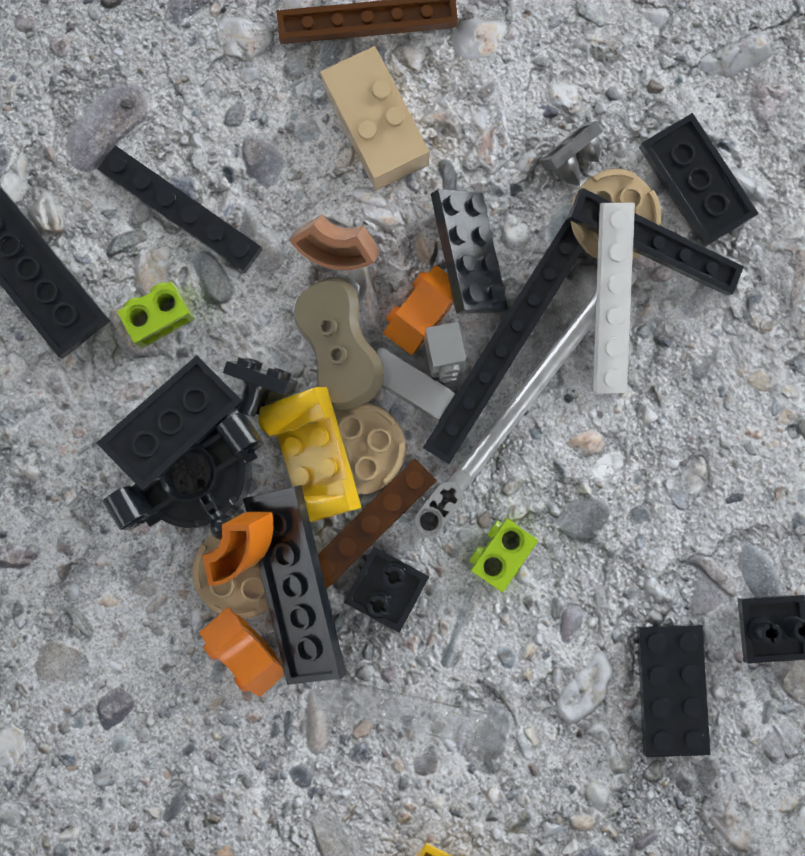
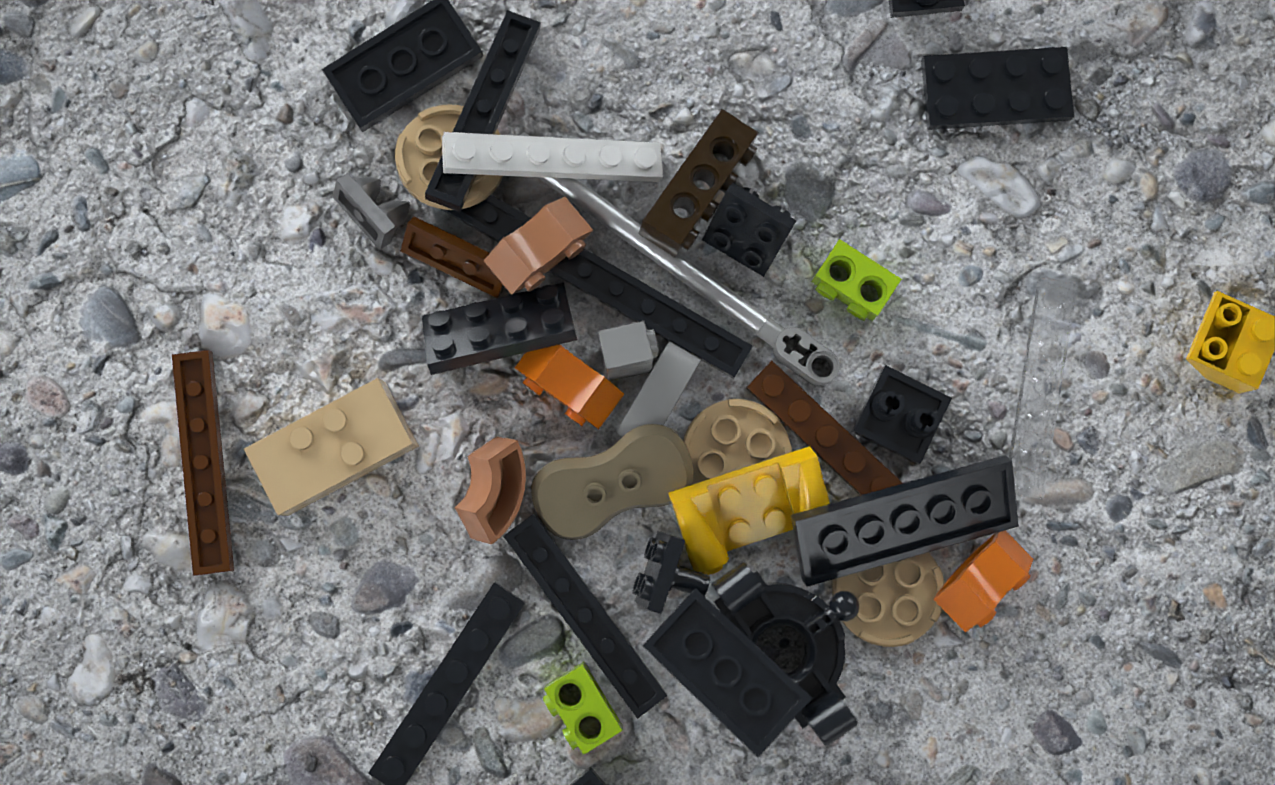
camera: 95 degrees left, 0 degrees up
(231, 317) = (585, 616): none -> black plate
(241, 547) = (863, 580): orange brick -> none
(530, 220) = (450, 255): none -> reddish brown plate
(537, 284) = (538, 246): none -> nougat brick
(550, 463) = (748, 229): none -> black plate
(631, 444) = (724, 136): none -> dark brown brick

